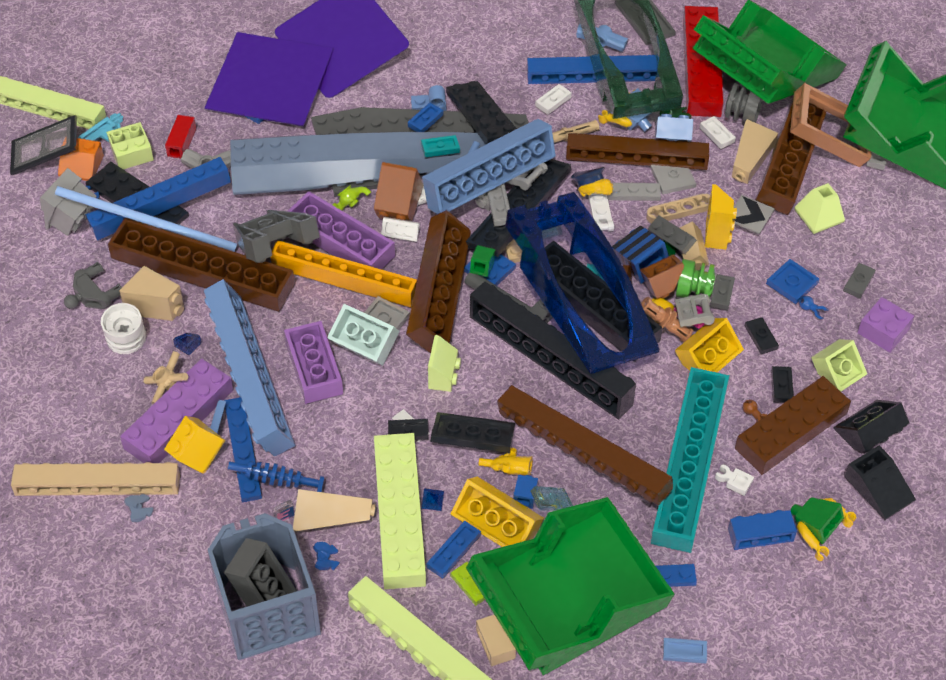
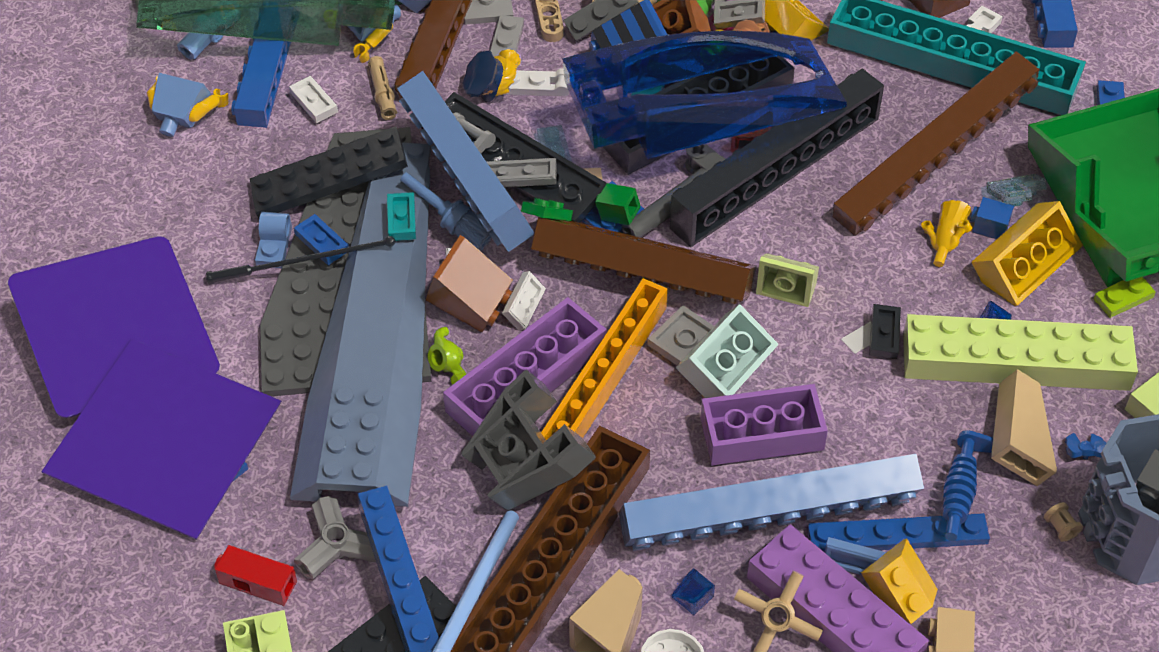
camera: 80 degrees left, 0 degrees up
(284, 511) = (1016, 486): tile -> none
(396, 81) = (247, 270): none -> black piece
(453, 549) = (1074, 301): blue plate -> none
(461, 219) = (547, 209): none -> green plate
(473, 432) = (898, 259): black plate -> none
(531, 33) = (181, 102): none -> medium blue torso

